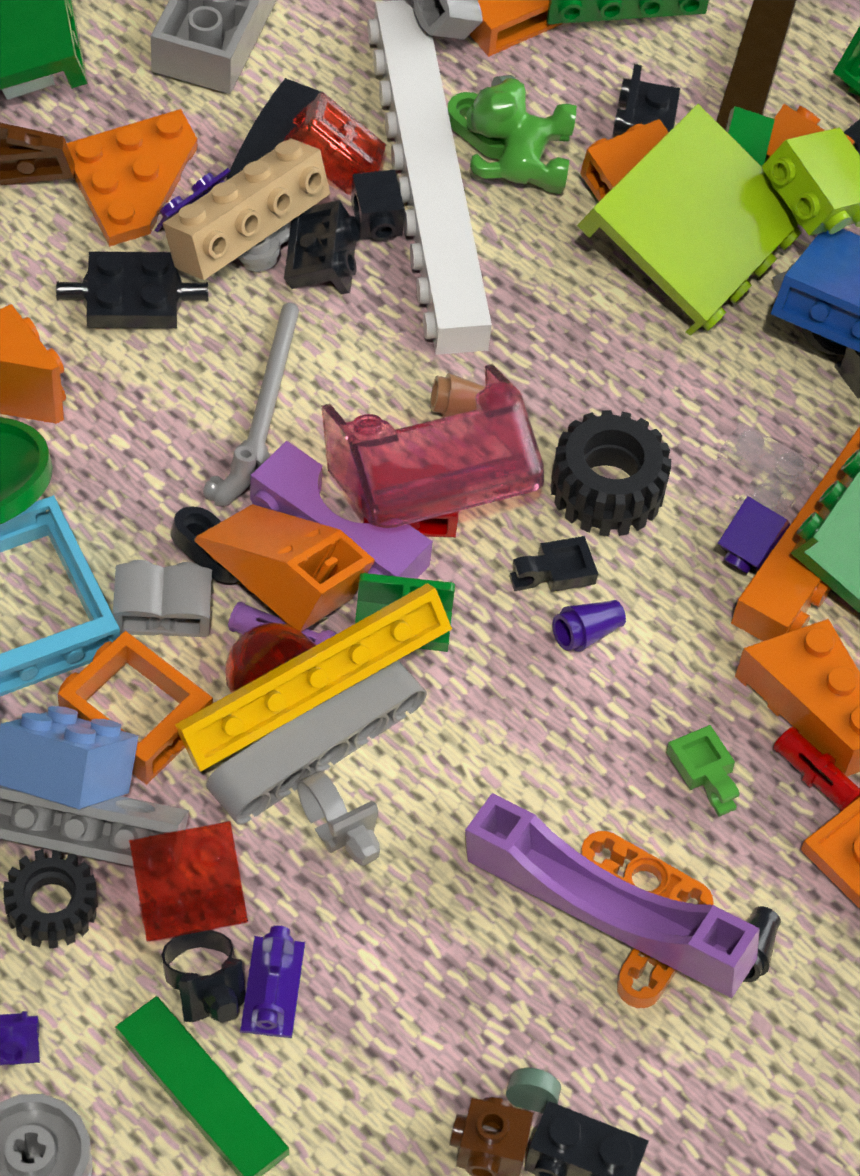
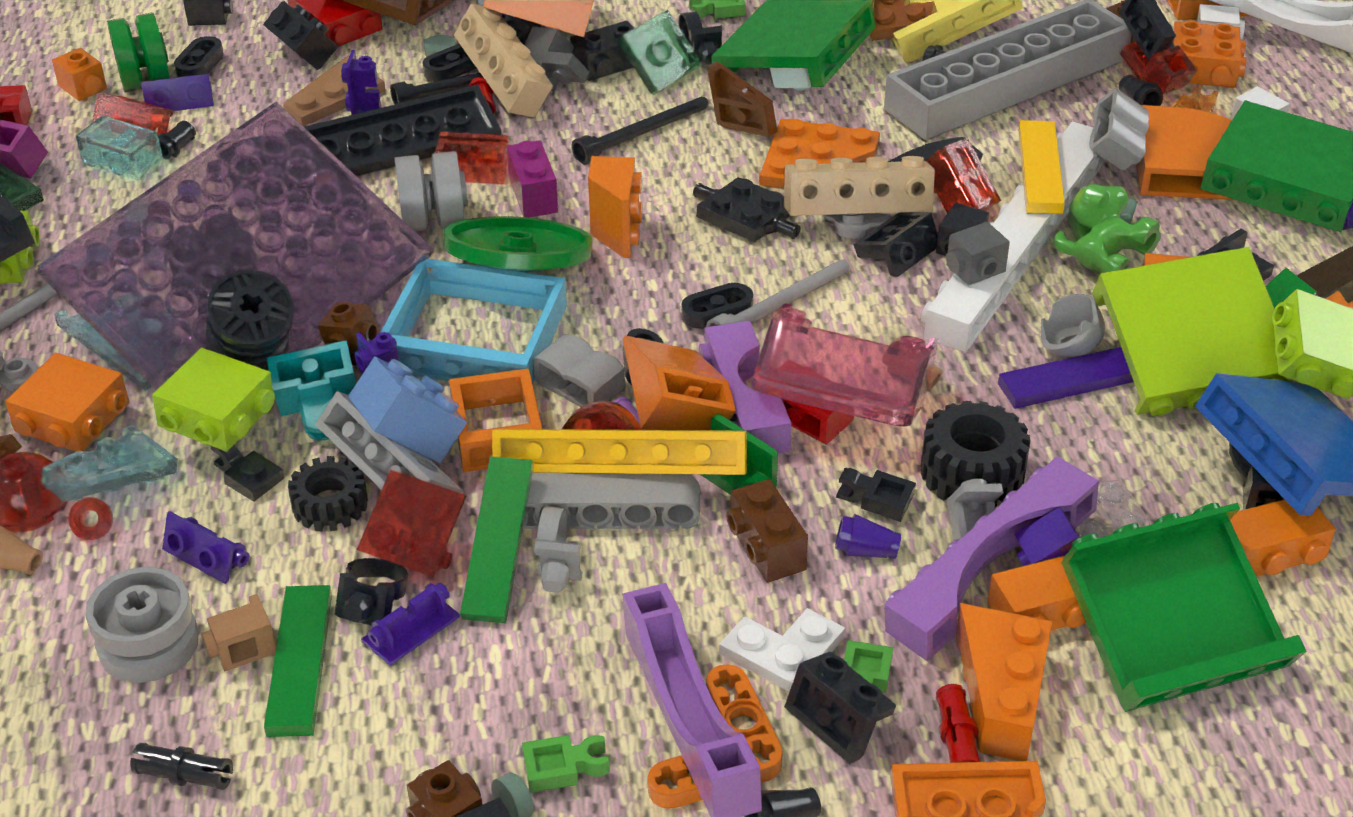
camera: 45 degrees right, 15 degrees down
(130, 1106) = (240, 635): none -> medium nougat brick
(215, 436) = (707, 304): none -> black plate
(238, 480) = (693, 336): light grey arm -> none
(279, 842) = (497, 540): none -> green tile
(401, 83) = (1041, 167): none -> yellow tile
(443, 236) = (977, 253): none -> dark grey brick
(505, 671) = (768, 530): none -> reddish brown brick
(536, 1030) = (555, 762): none -> bright green plate
(575, 269) = (1073, 326): none -> light grey hair
(605, 328) = (1065, 378): none -> dark purple tile
(618, 795) = (776, 655): none -> white plate
(662, 542) = (970, 503): none -> light grey bracket
(708, 659) = (928, 607): none -> medium lavender arch
(717, 813) = (837, 704): none -> black bracket

